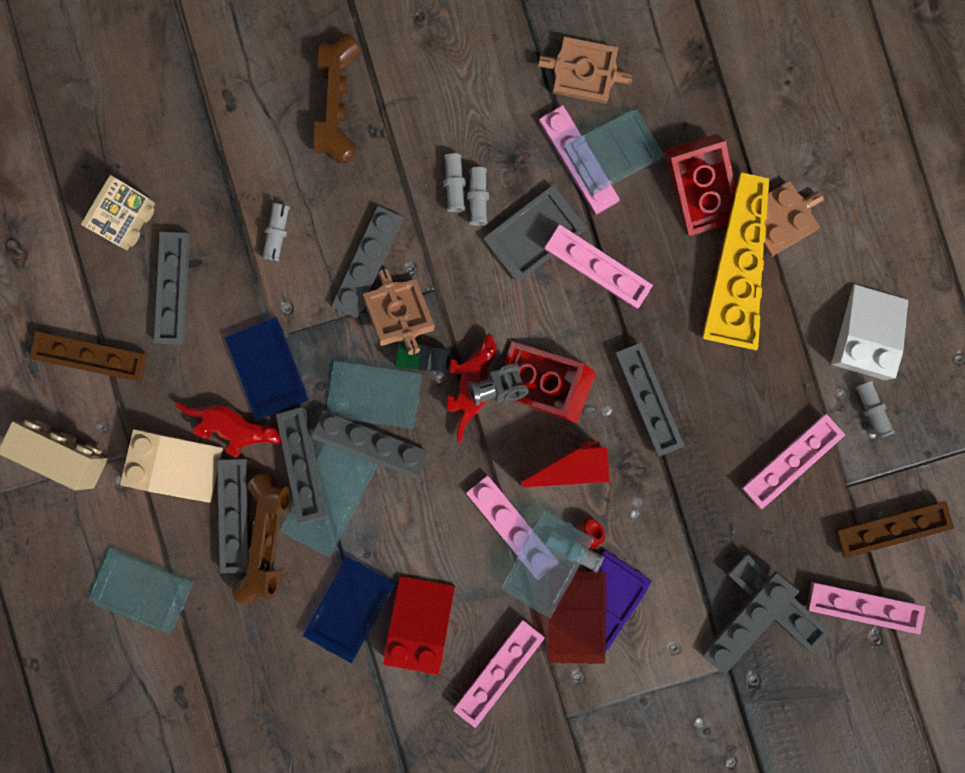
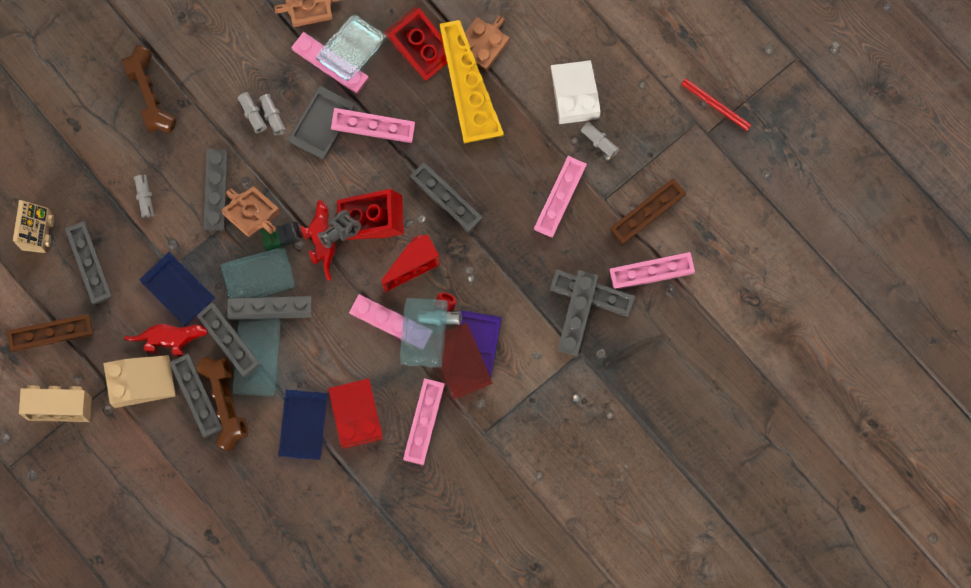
camera: 25 degrees left, 10 degrees down
(140, 591) = (153, 476): clear light blue piece -> none

